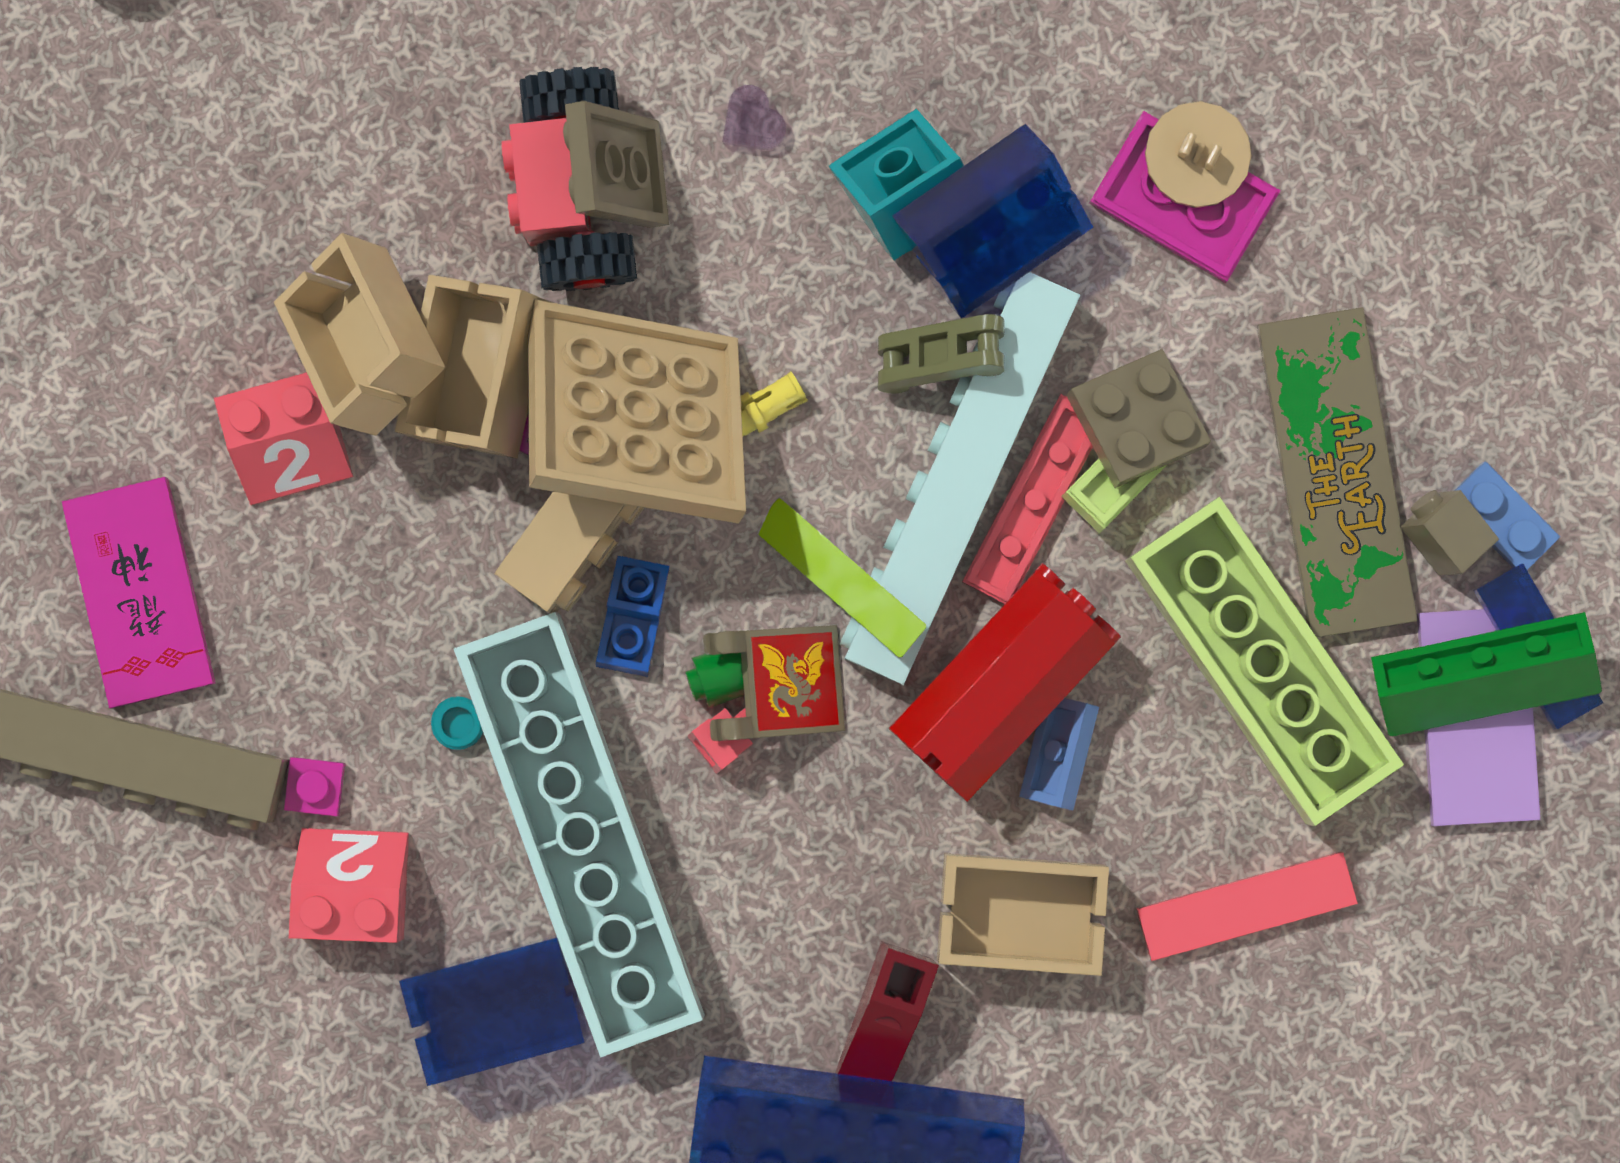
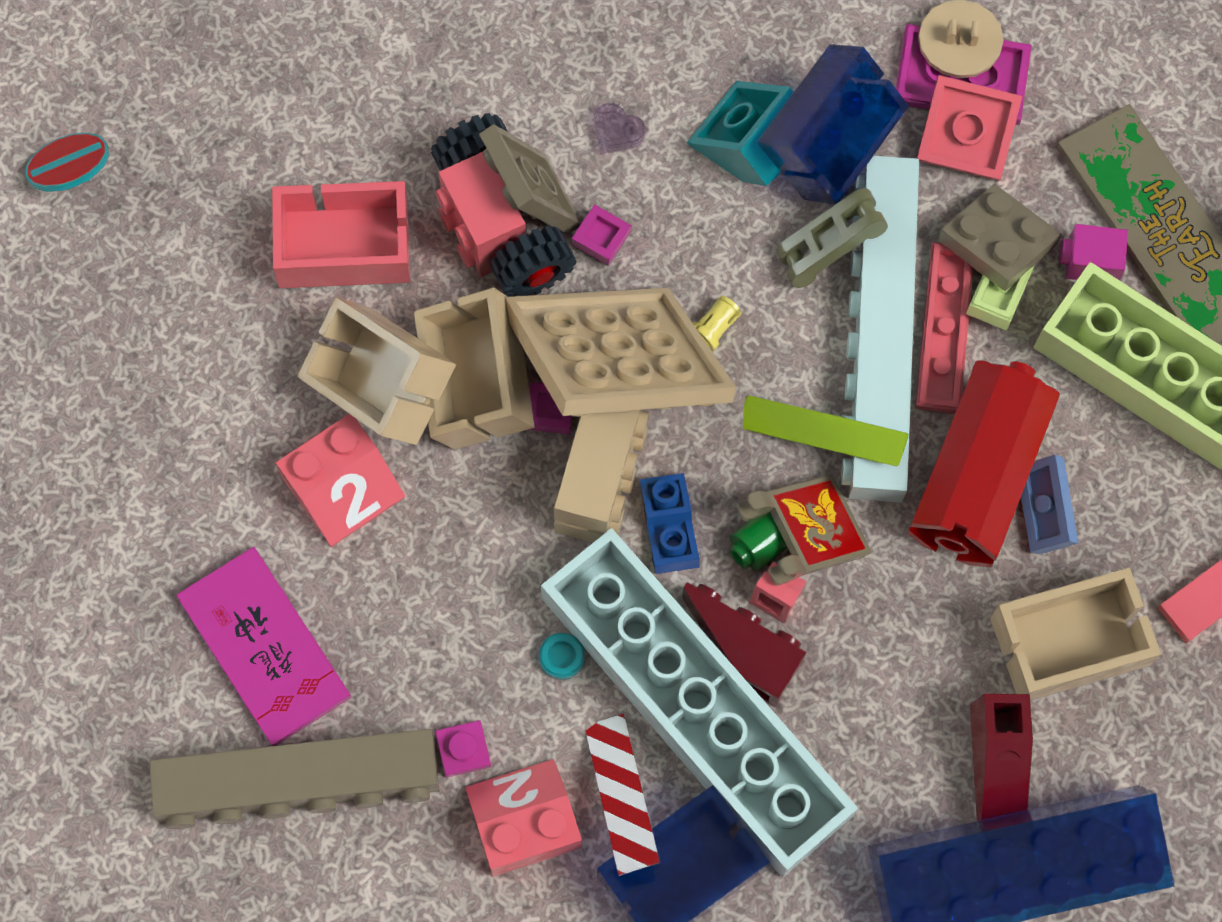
camera: 25 degrees left, 15 degrees down
(385, 150) = (351, 242): none -> coral piece
(459, 906) = (621, 795): none -> sticker
(661, 799) = (759, 655): none -> dark red slope
(683, 248) = (601, 235): none -> dark pink plate
(1158, 273) = (969, 128): none -> coral plate
(1239, 478) = (1097, 245): none -> dark pink brick

